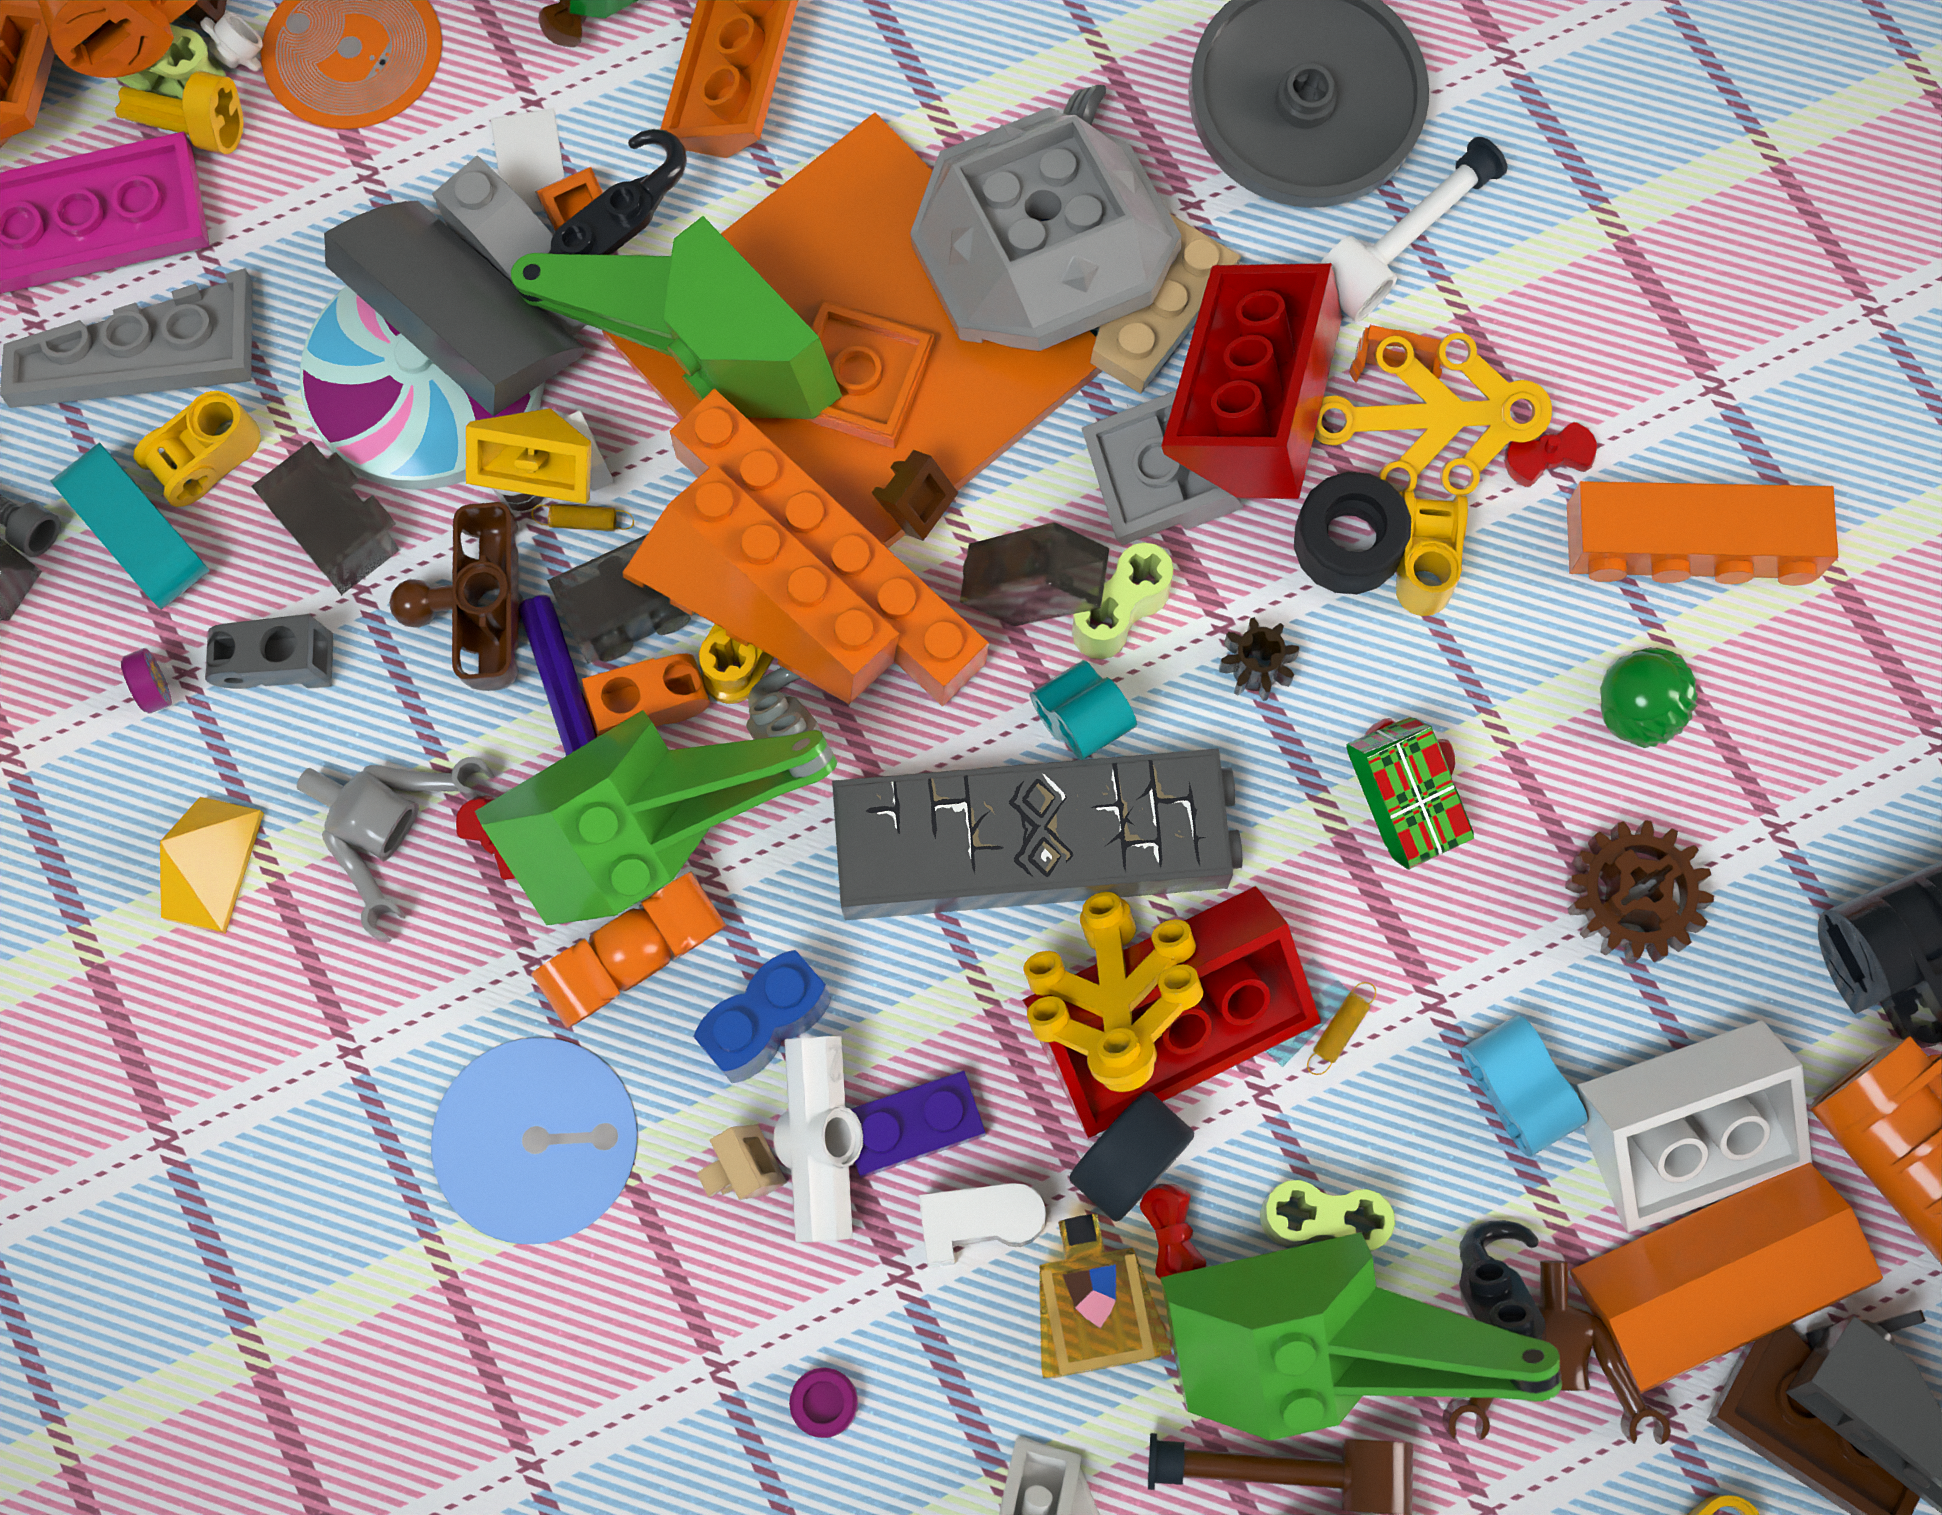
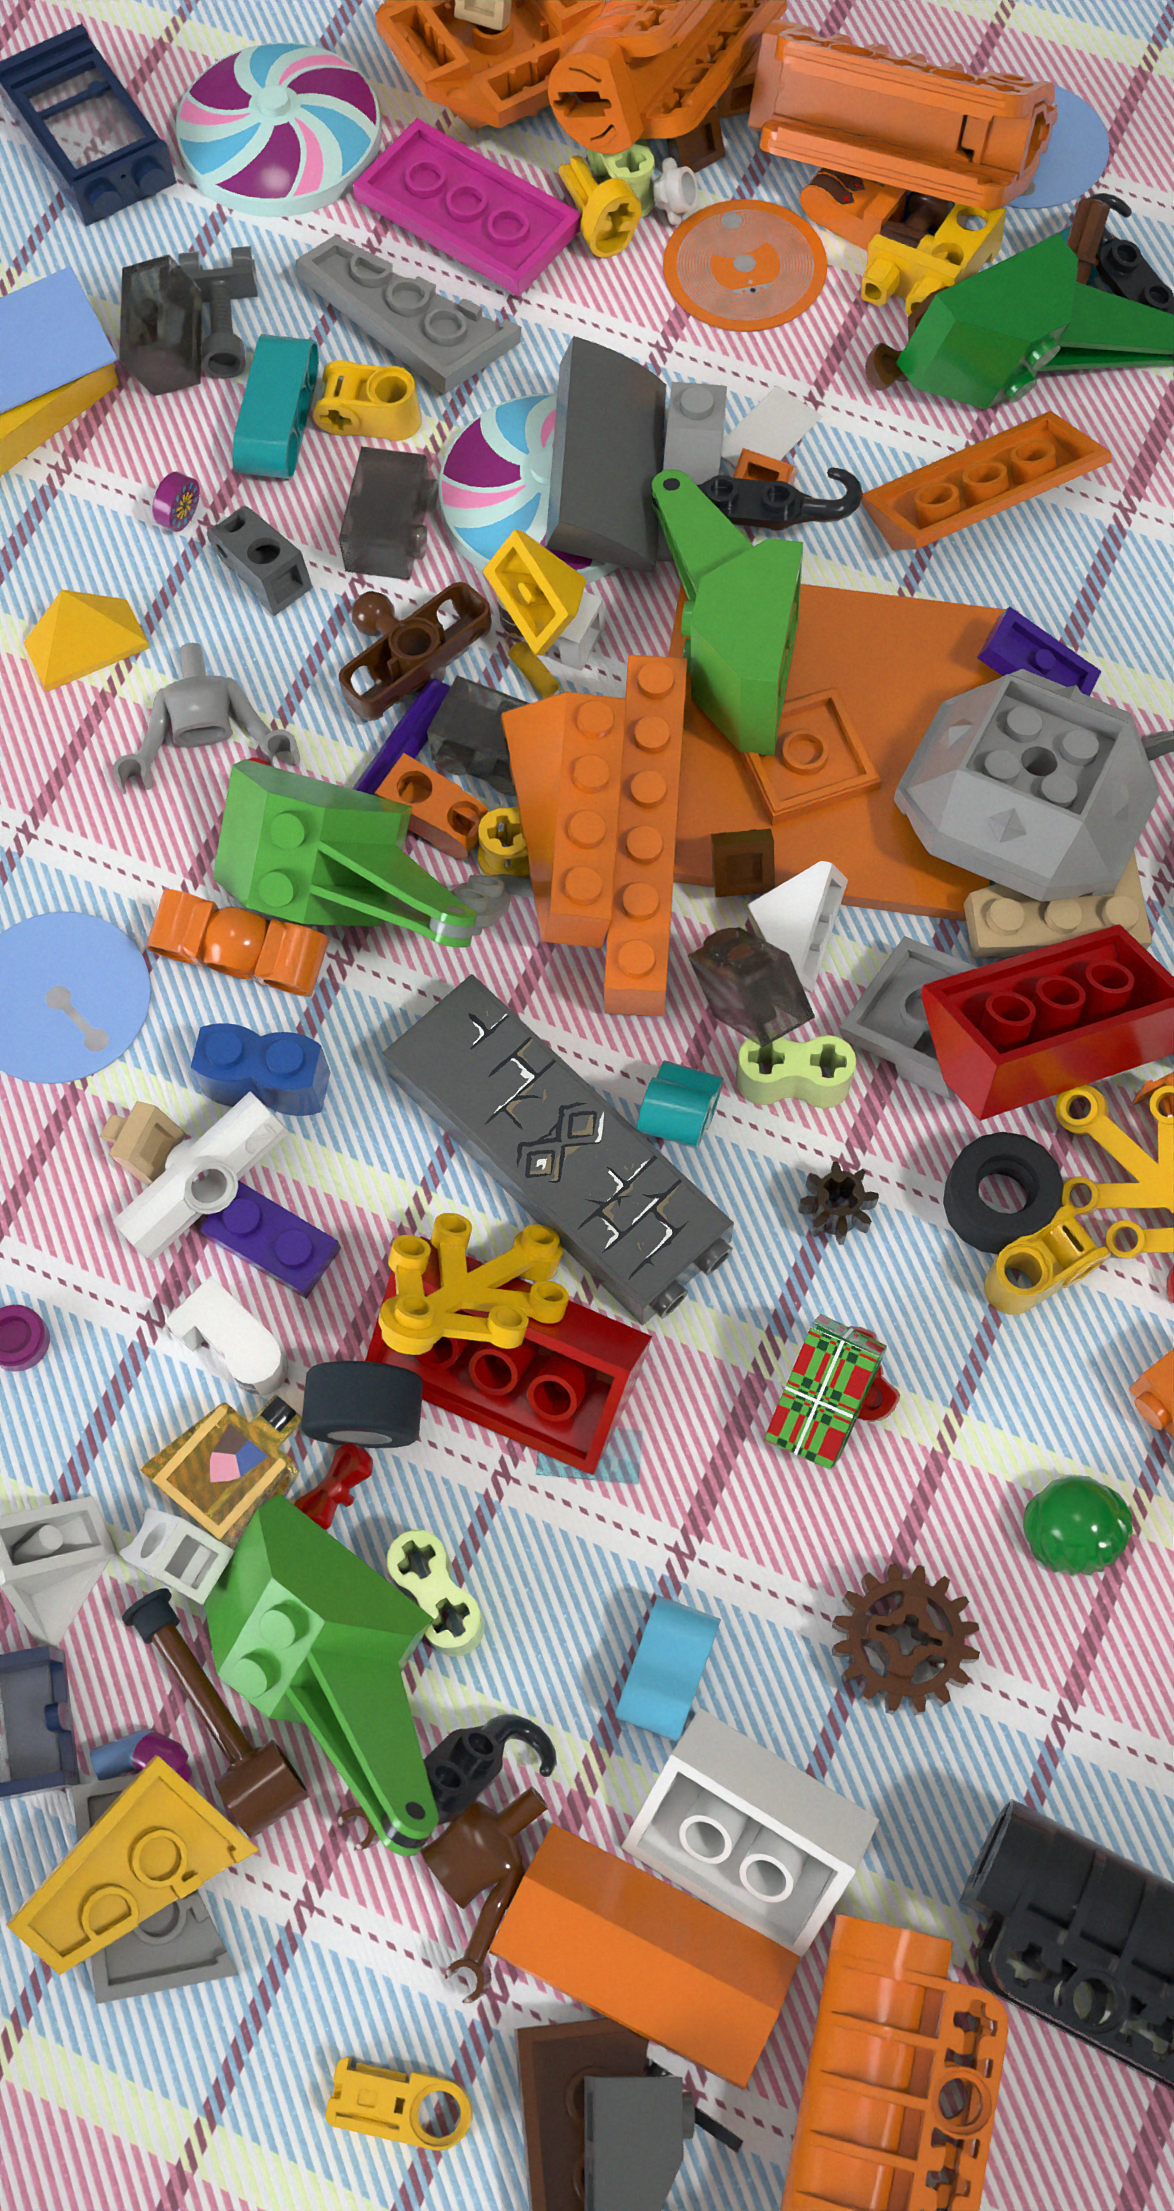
camera: 50 degrees right, 5 degrees down
(917, 135) = (1021, 644): none -> dark purple plate
(998, 491) = (802, 916): none -> white slope
(1137, 1402) = (177, 1554): none -> white leg
(1341, 1028) = (600, 1493): yellow piece -> none

